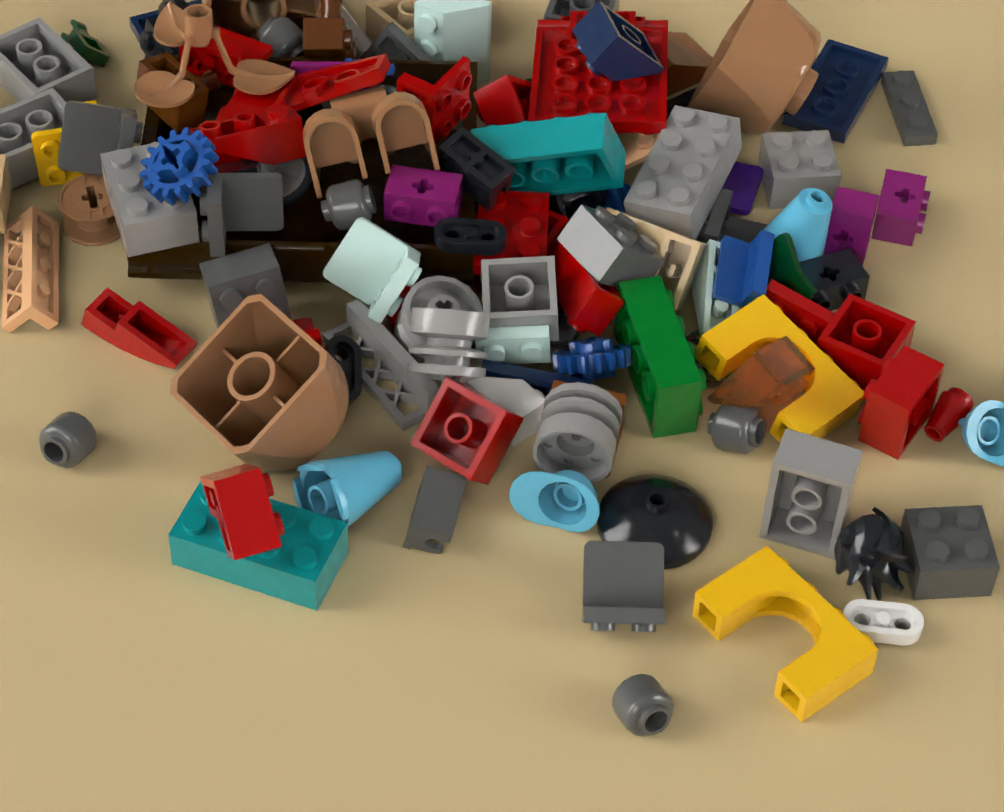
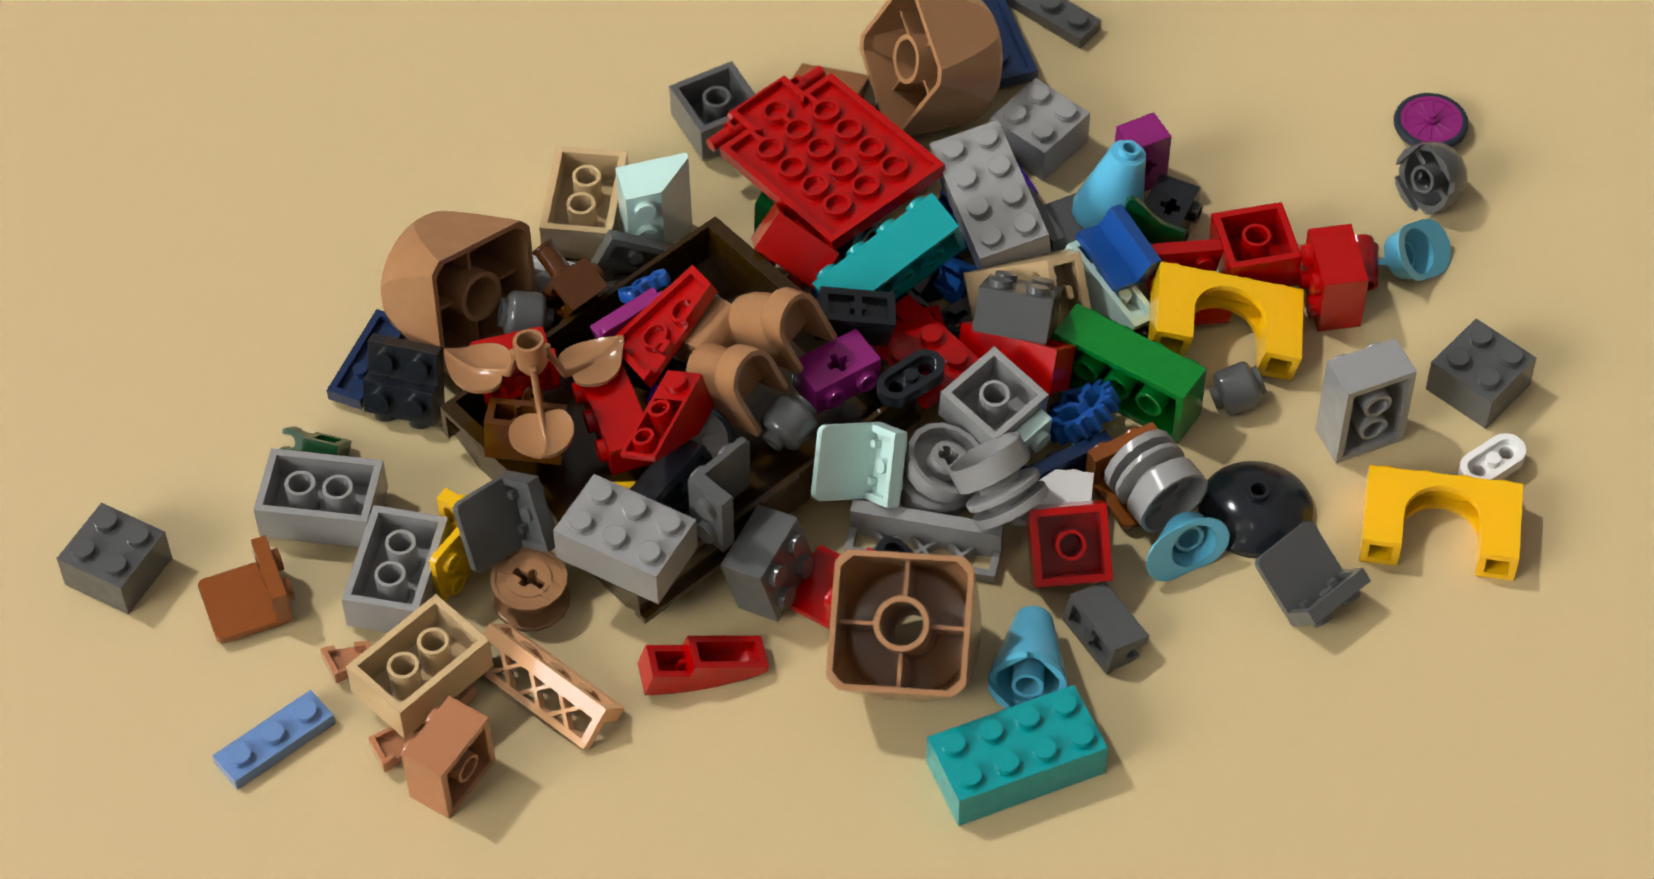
camera: 40 degrees left, 5 degrees up
(67, 439) = (768, 794): dark grey head -> none
(179, 166) = (657, 506): blue gear -> none
(243, 510) = (1016, 727): red brick -> none
(446, 100) = (758, 278): red bracket -> none
(615, 45) = (826, 123): dark blue slope -> none
(642, 705) = (1413, 653): dark grey head -> none
(766, 377) = (1228, 332): clear orange slope -> none
(872, 553) = (1441, 414): black hair -> none
(900, 206) = (1143, 94): magenta brick -> none

